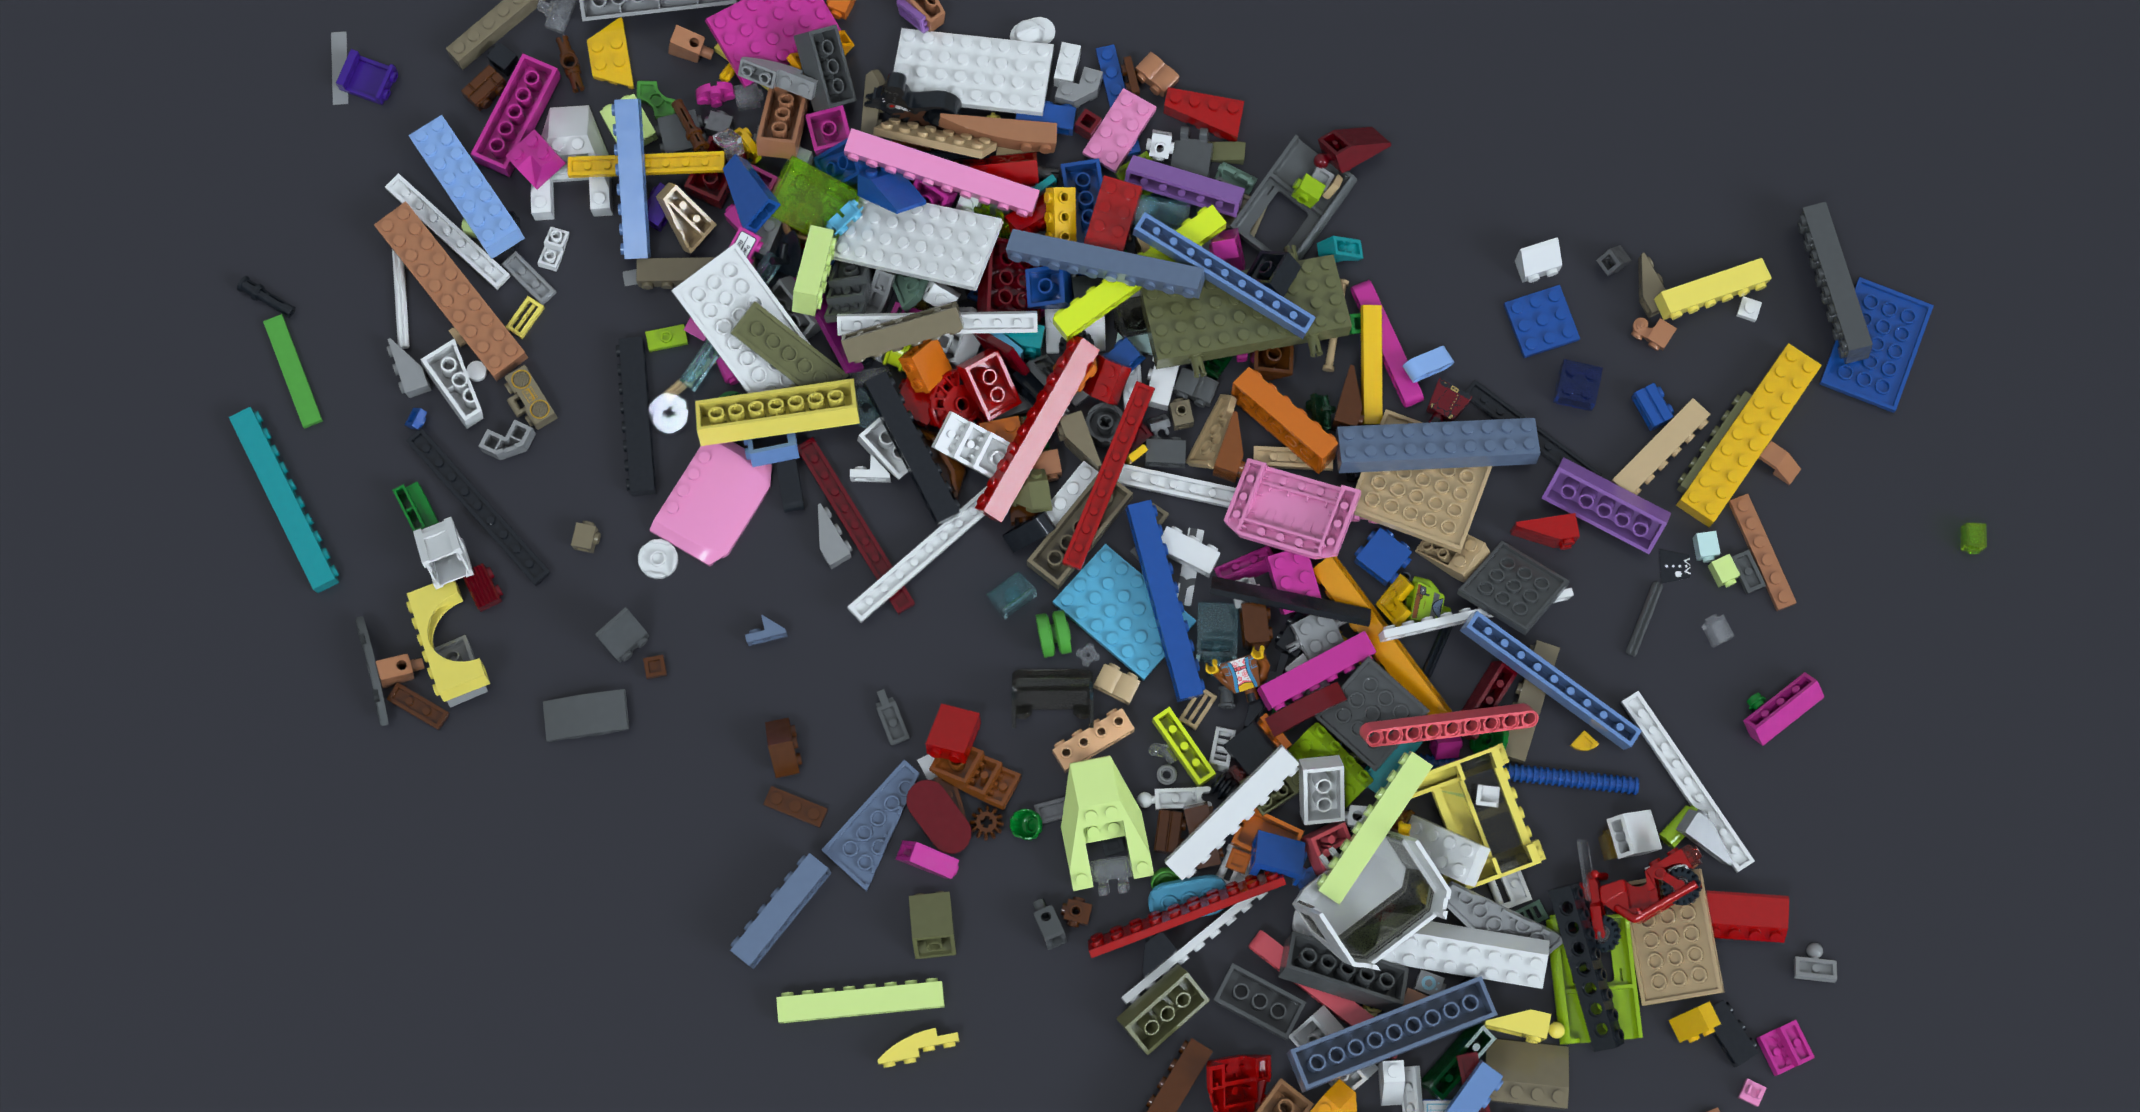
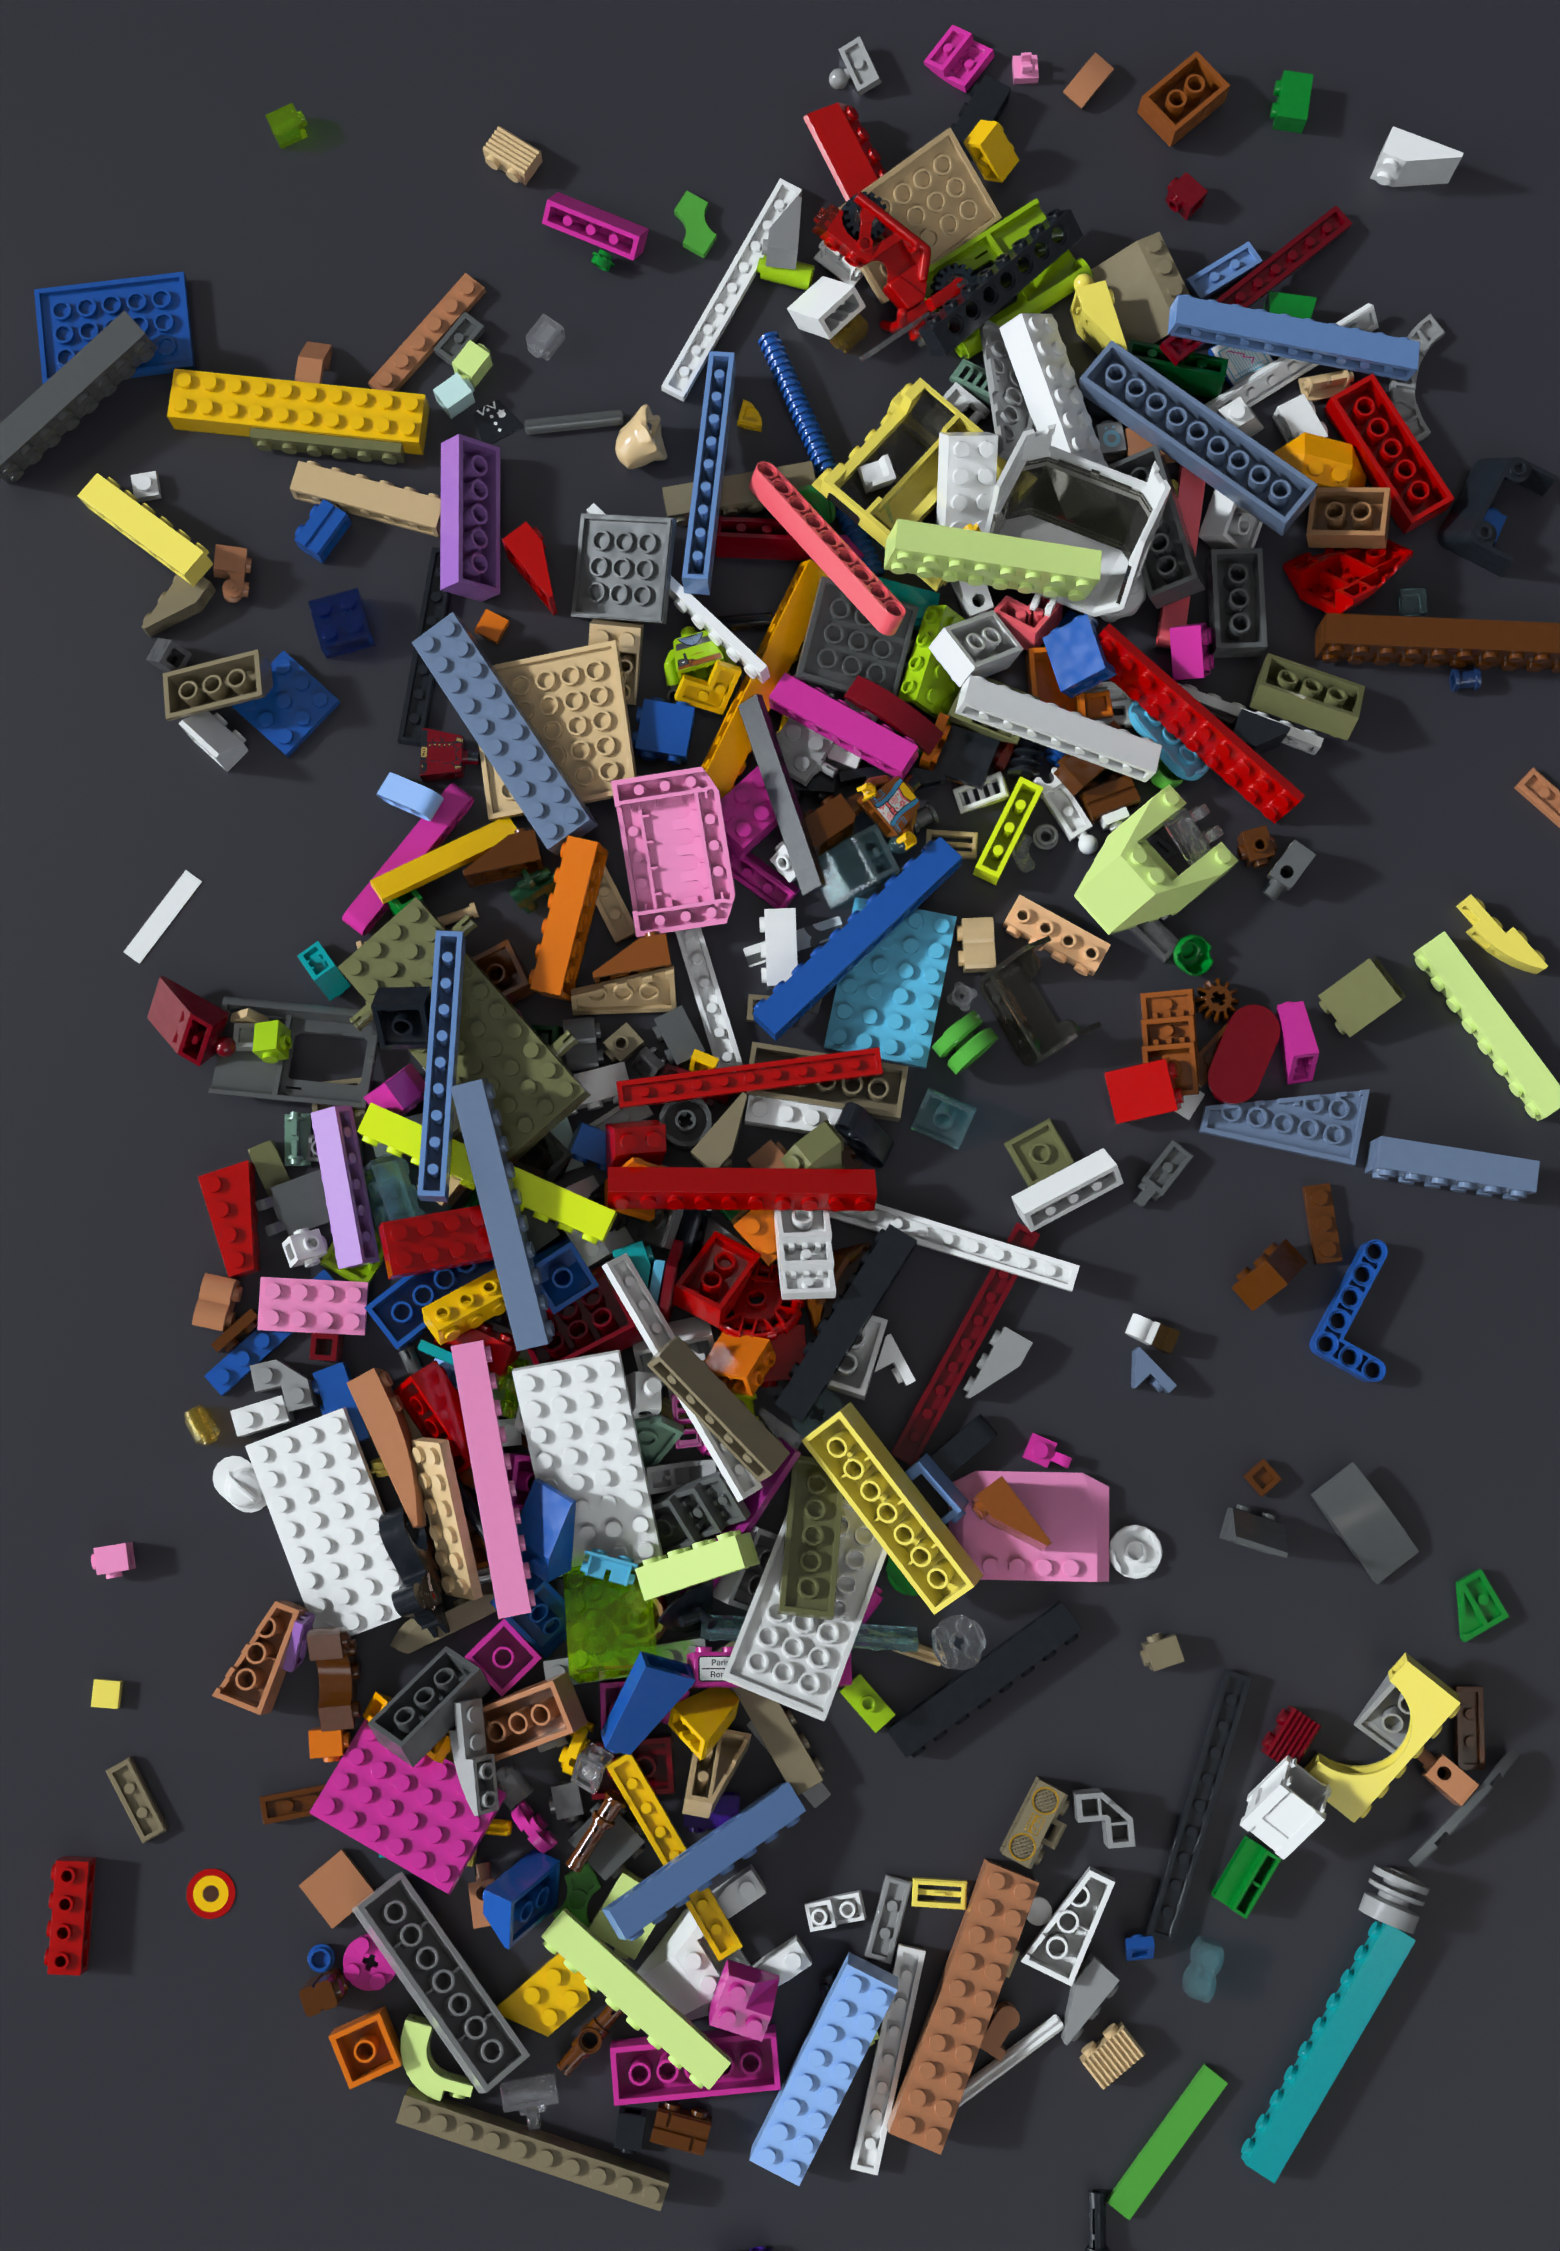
camera: 120 degrees left, 5 degrees up
(345, 590) = (1394, 1898): none -> light grey wheel
(364, 365) = (1111, 2054): none -> tan brick
(378, 449) = (1201, 1973): none -> clear light blue brick
(425, 309) = (1003, 2020): none -> nougat leg
(489, 758) = (1477, 1605): none -> green wing
(576, 97) = (637, 1999): none -> yellowish green brick
(677, 63) = (522, 1897): none -> blue slope
(716, 226) = (704, 1718): none -> yellow slope
(727, 785) = (1347, 1314): none -> blue beam
(730, 482) = (1006, 1512): none -> dark orange slope
(756, 536) = (1043, 1451): none -> dark pink plate
(790, 649) = (1152, 1333): none -> leg
(877, 28) = (337, 1675): none -> reddish brown brick
(916, 652) = (1067, 1190): none -> white brick
(952, 646) = (1039, 1152): none -> olive tile
(1083, 27) = (201, 1425): none -> clear yellow brick
(1151, 826) = (1113, 819): none -> white plate
(1240, 945) = (1191, 651): none -> dark pink slope
(1436, 170) = (162, 916): none -> white sticker
(1523, 484) = (491, 626): none -> orange tile
(1572, 277) = (216, 684): none -> dark tan slope
(1599, 651) = (639, 445): none -> tan piece
(1760, 786) = (692, 212): none -> bright green tile
(1871, 681) = (512, 156): none -> tan brick

